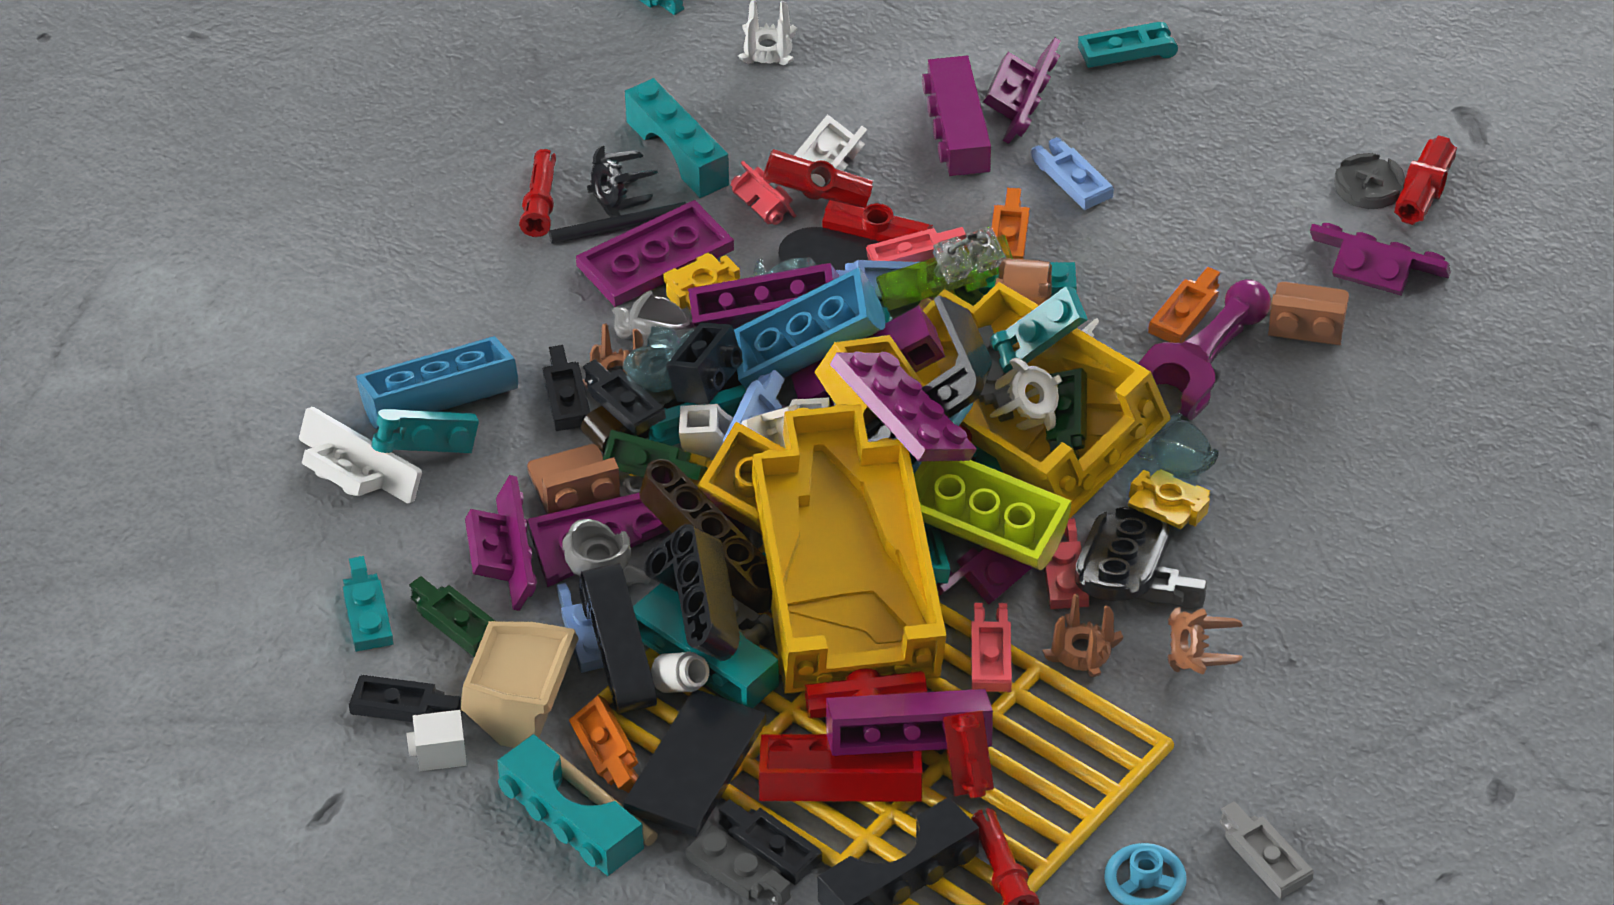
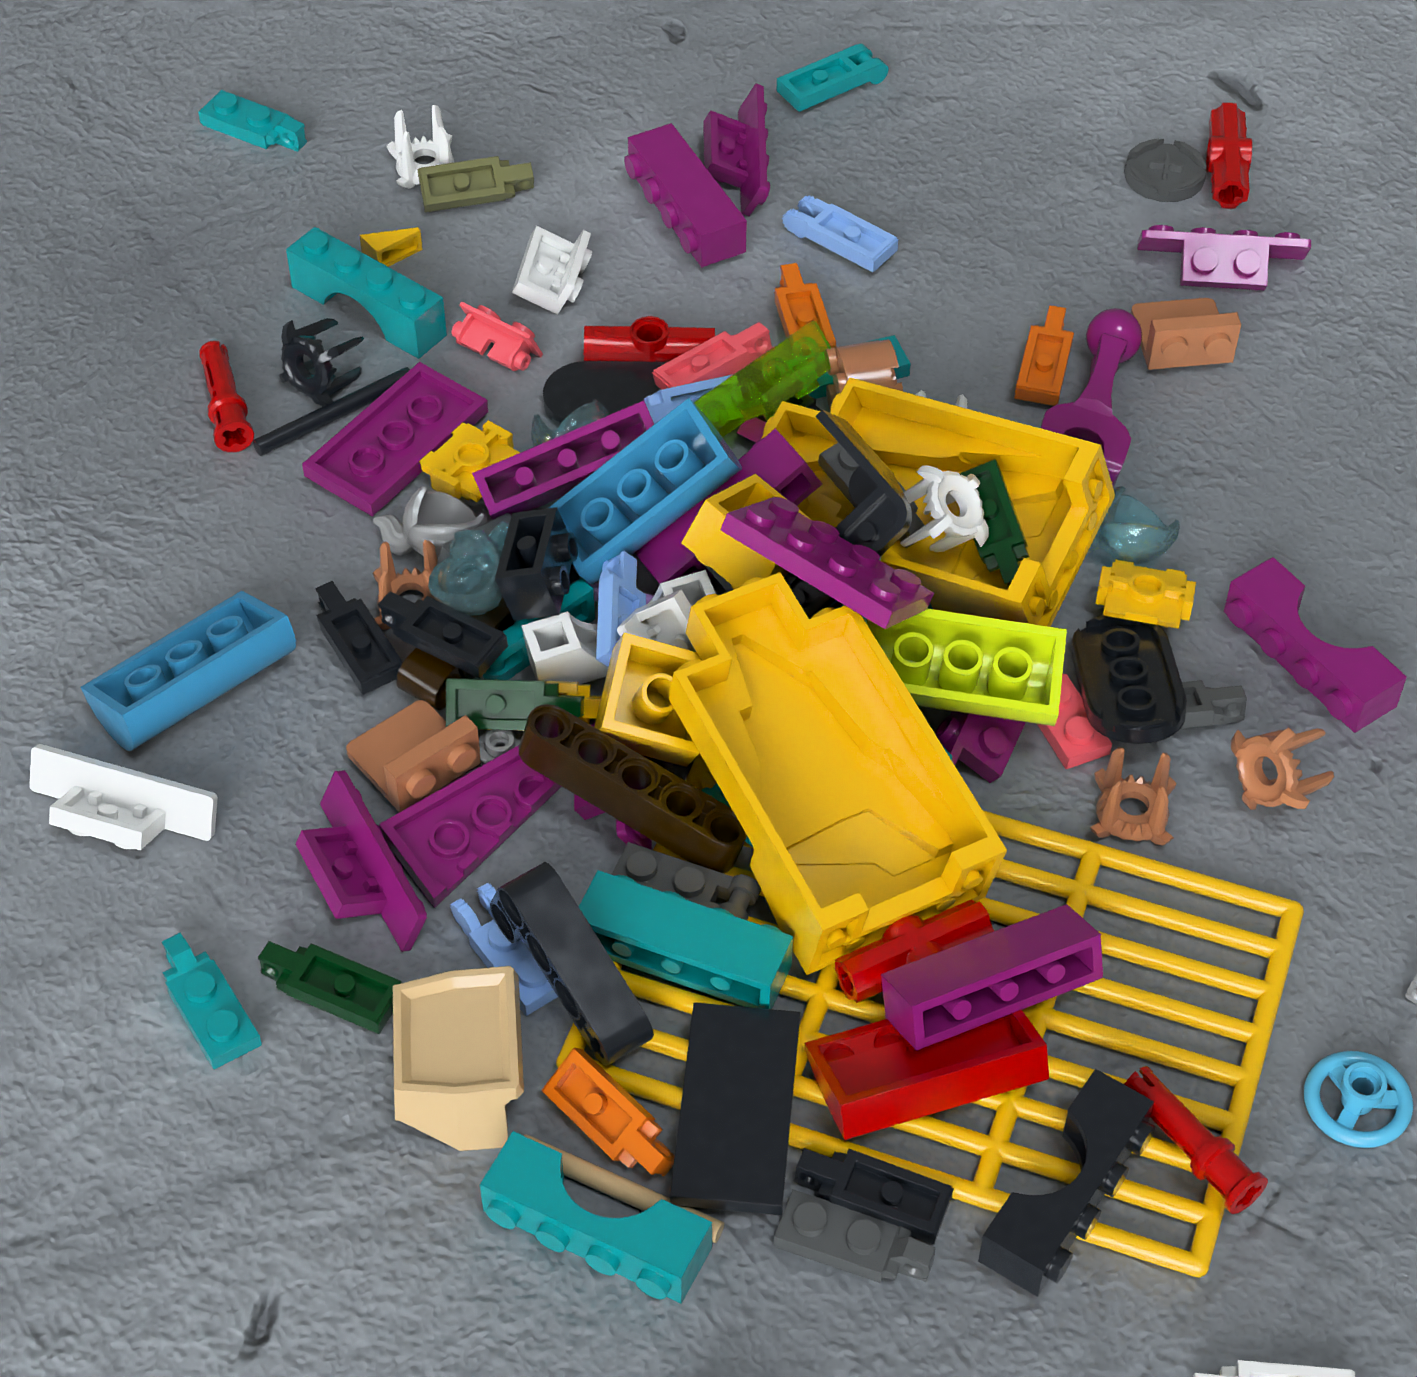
camera: 20 degrees left, 5 degrees up
(399, 699) = (309, 1127): black hinge -> none
(425, 431) = (201, 740): teal plate -> none
(437, 740) = (380, 1173): white brick -> none
(594, 545) = (496, 849): light grey hair -> none
(679, 672) = (671, 987): white brick -> none
(697, 569) = (644, 834): black beam -> none
(711, 107) = (391, 246): none -> yellow piece
(796, 69) = (472, 182): none -> olive hinge
(796, 174) = (536, 304): red piece -> none
(968, 753) = (1087, 1000): red hinge -> none
(983, 249) = (790, 357): clear piece -> none
(991, 650) = (1037, 845): coral hinge -> none
(1040, 328) = (932, 421): teal plate -> none
(1295, 599) = (1350, 682): none -> magenta arch

